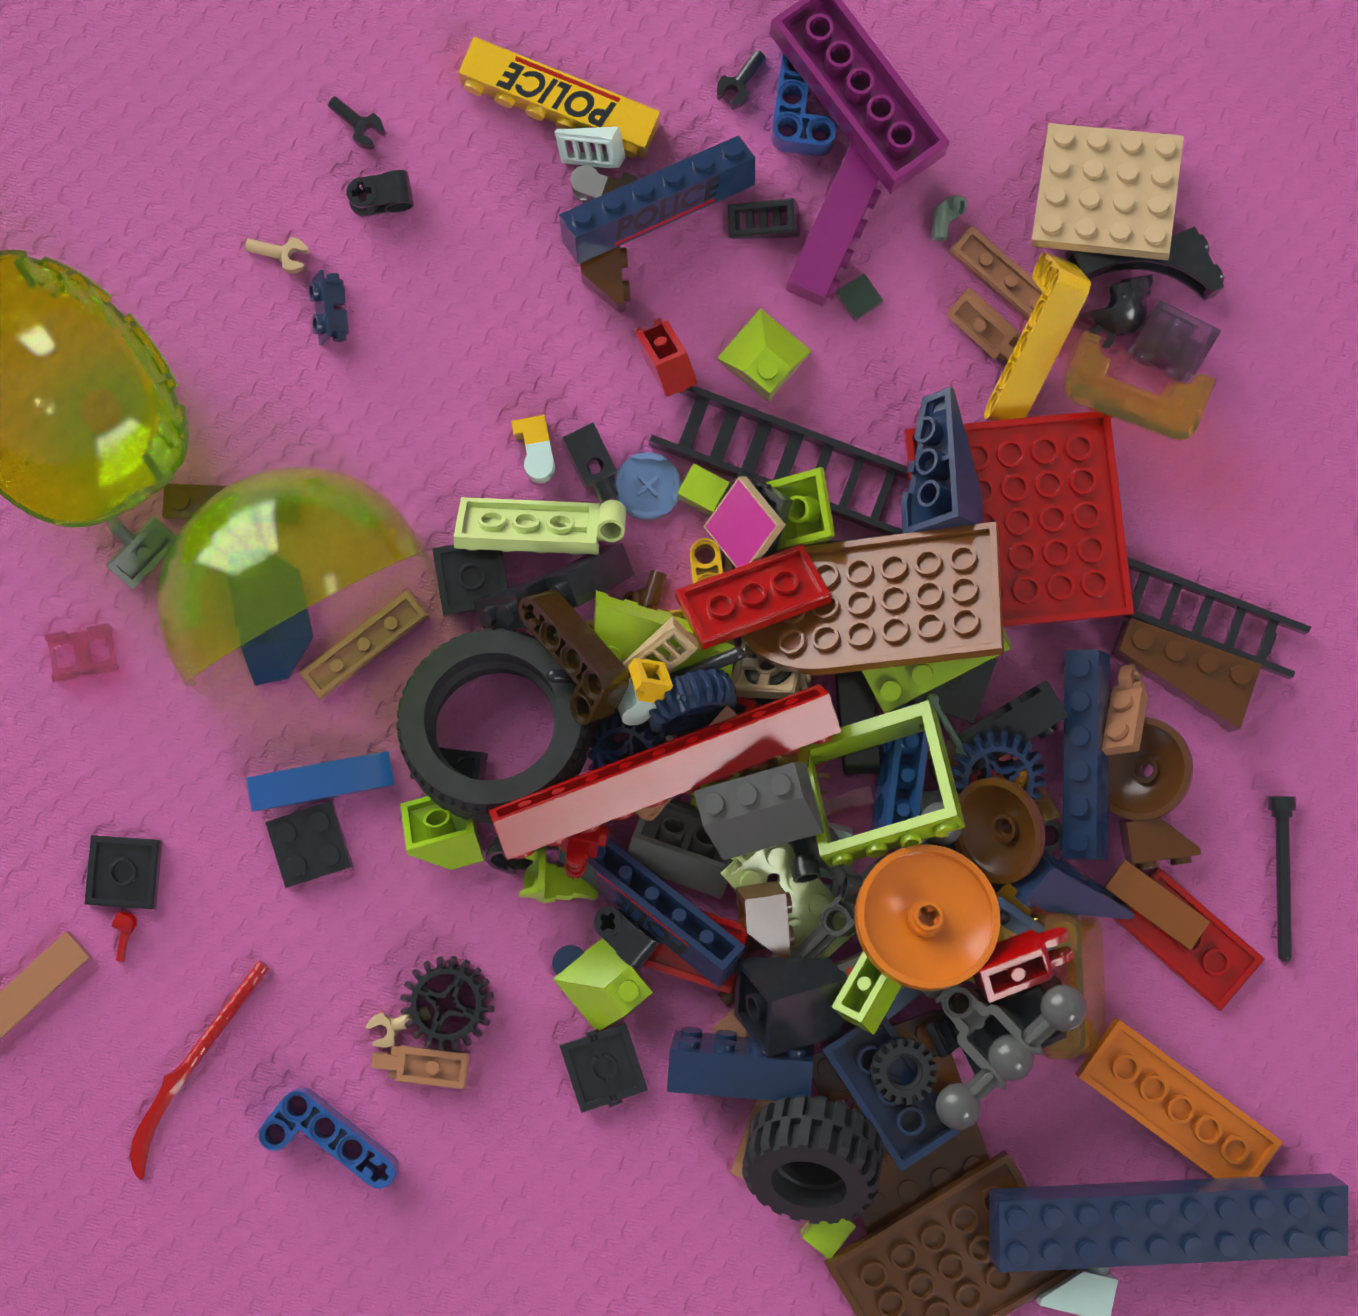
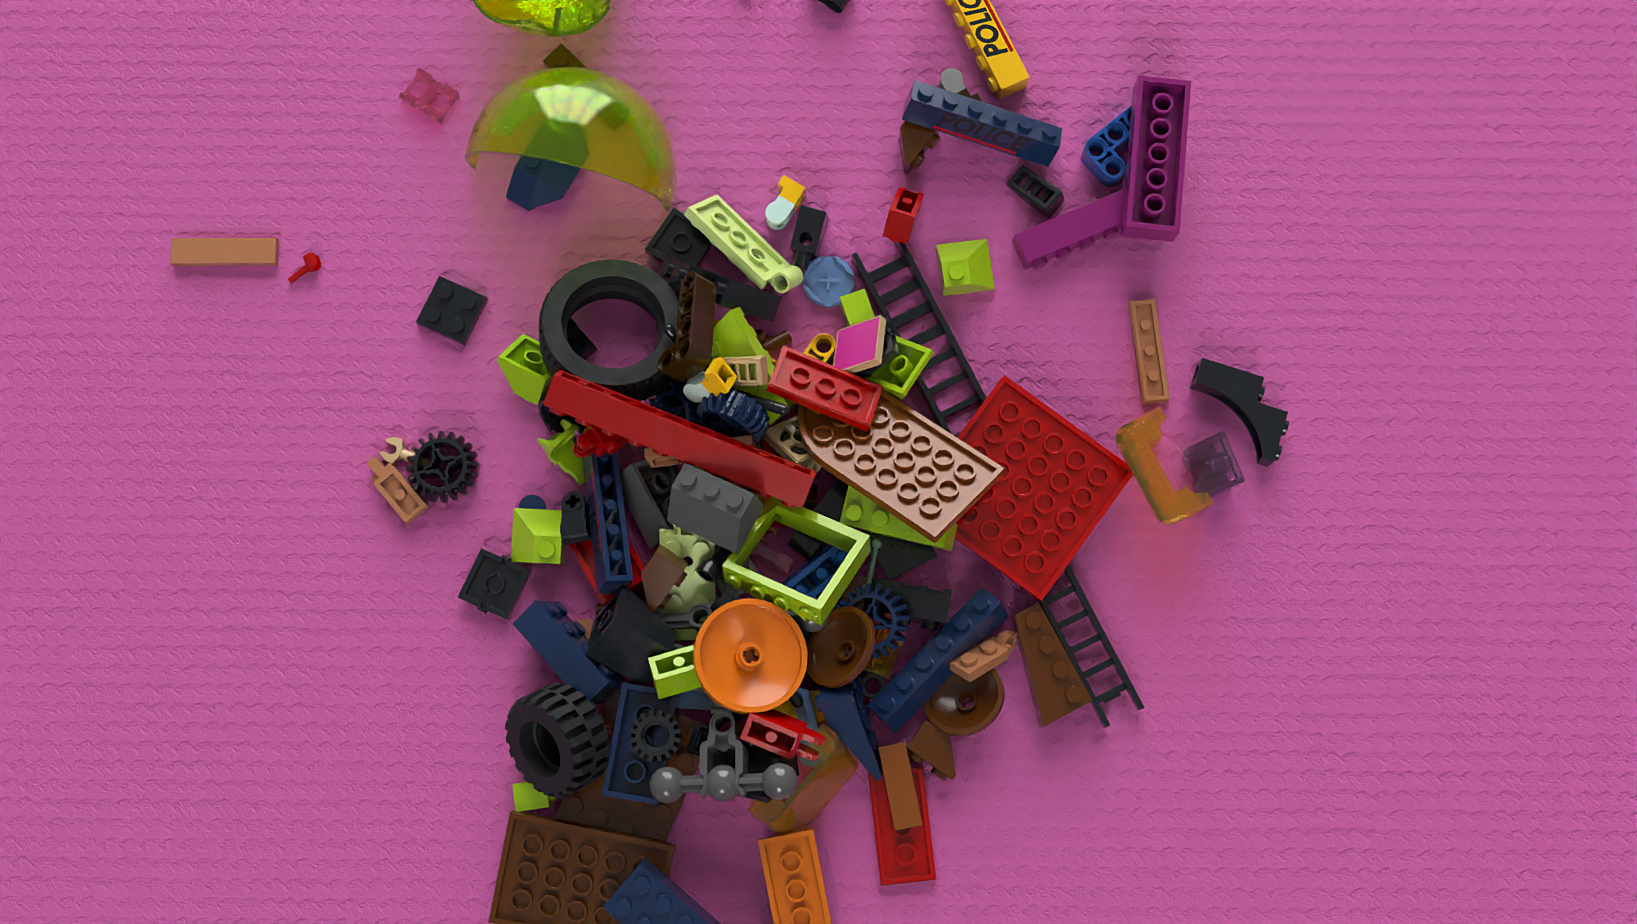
camera: 45 degrees right, 5 degrees down
(123, 872) = (338, 234): black tile -> none
(140, 550) = (507, 69): dark grey plate -> none
(173, 1081) = (256, 373): red piece -> none
(319, 781) = (490, 280): blue slope -> none
(325, 294) = (747, 18): dark blue hinge -> none
(334, 1144) = (307, 488): blue beam -> none
(364, 644) = (586, 228): nougat tile -> none
(610, 136) = (986, 65): light aqua slope -> none
(739, 82) = (1094, 102): black bar -> none
(859, 297) = (1050, 282): clear green tile -> none
(943, 475) = (1000, 420): dark blue wedge -> none
(944, 214) = (1145, 278): sand green arm -> none
(984, 325) = (1110, 366): nougat hinge -> none
(1062, 297) = (1168, 377): yellow beam -> none
(1108, 191) = (1253, 347): tan plate -> none
(1125, 310) = (1202, 424): black helmet -> none
(1282, 809) = (1028, 800): black piece -> none

